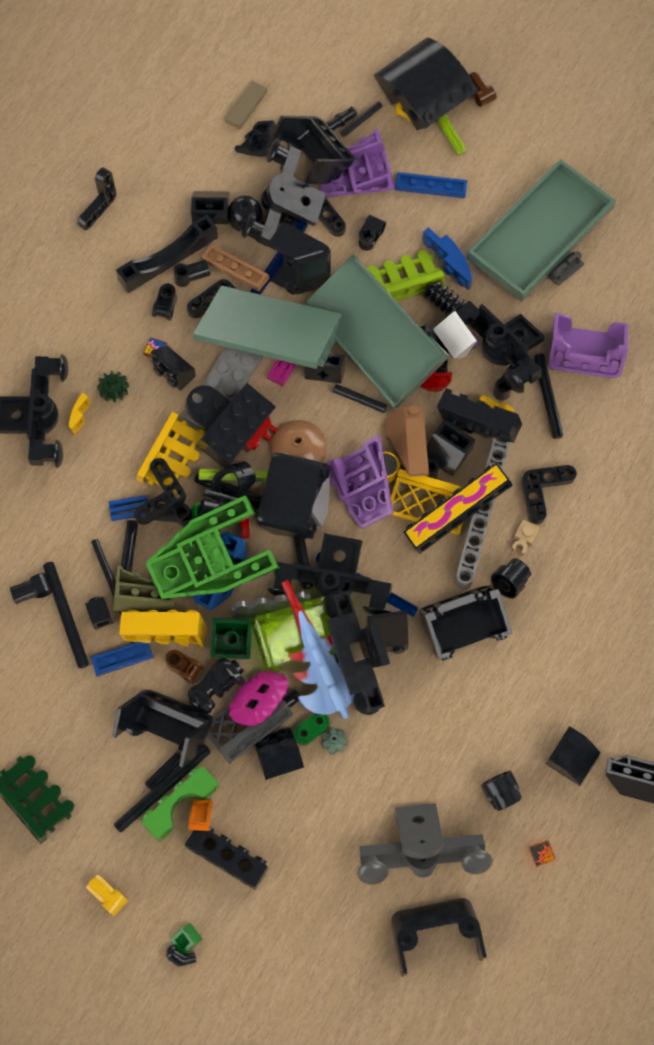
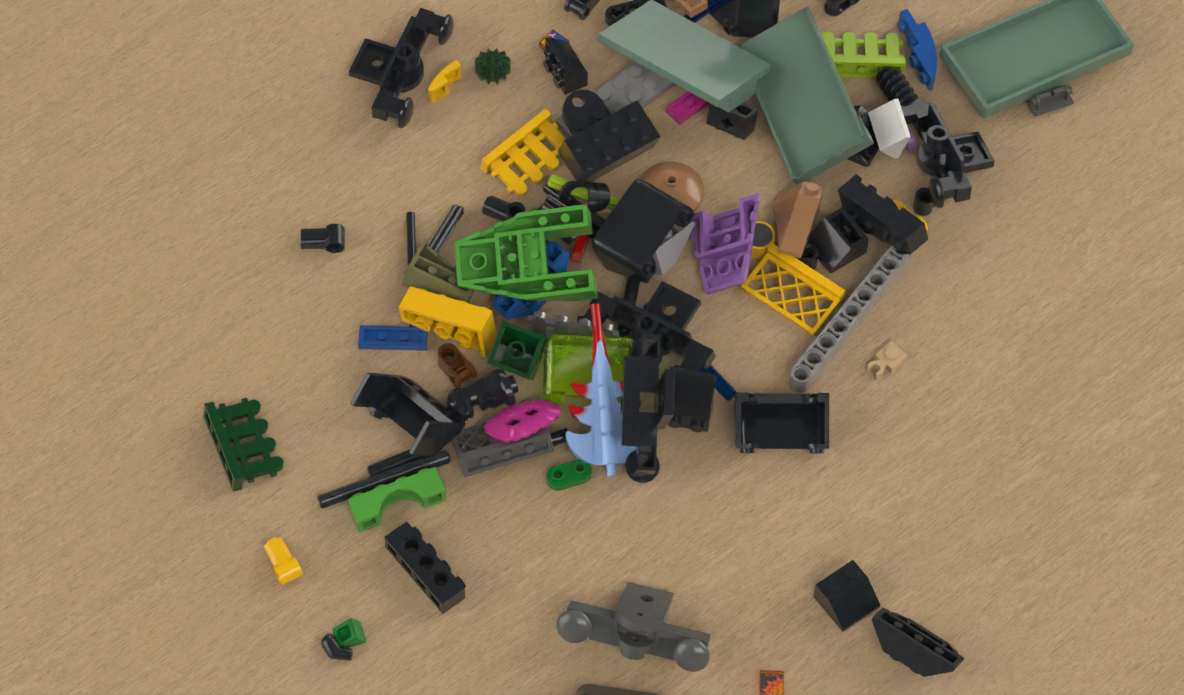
camera: 20 degrees right, 10 degrees down
(66, 615) = (350, 276): black axle -> none
(98, 612) = (386, 284): black brick -> none
(112, 504) = (462, 190): blue tile -> none
(167, 496) = (505, 190): black beam -> none
(200, 815) = (413, 515): orange tile -> none
(254, 442) = (624, 167): red plate -> none
(279, 753) = (522, 485): black slope -> none
(334, 744) = (589, 495): sand green plant -> none
(359, 398) = (760, 162): black piece -> none
(437, 382) = (847, 169): red tile -> none
(457, 508) = (819, 301): brick -> none
(502, 790) = (751, 601): black piece -> none
(511, 578) = (851, 393): black piece -> none
(540, 482) = (927, 310): black beam -> none
(549, 398) = (974, 226): black axle -> none
(588, 350) = (1036, 191): medium lavender windscreen -> none

